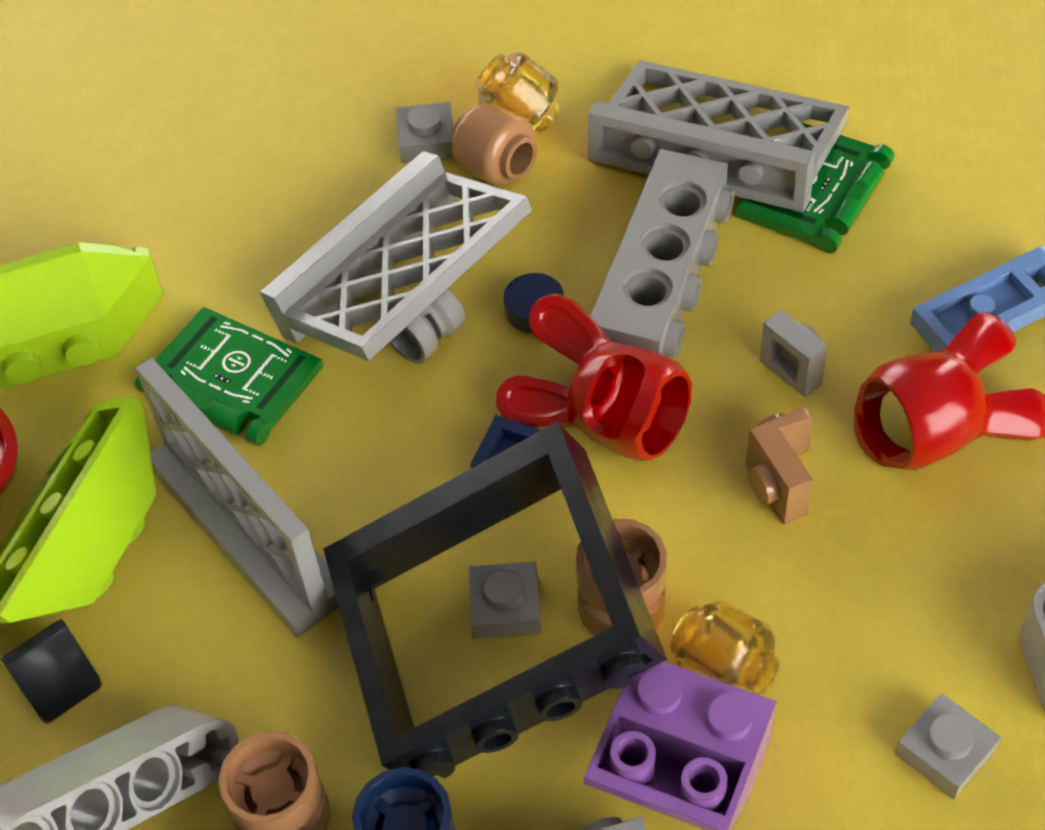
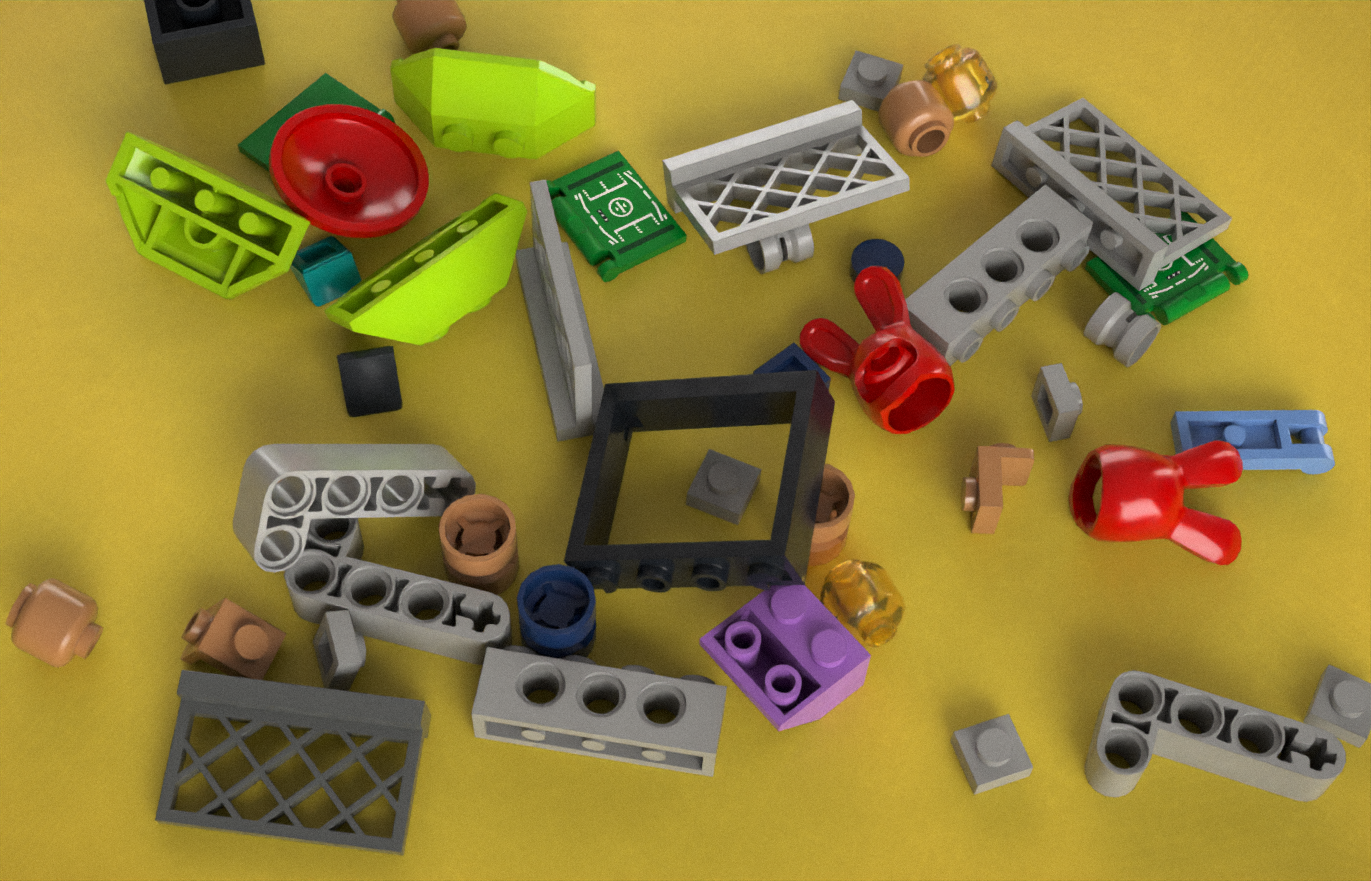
camera: 20 degrees right, 5 degrees up
(812, 254) = (1122, 329): none -> light grey wheel

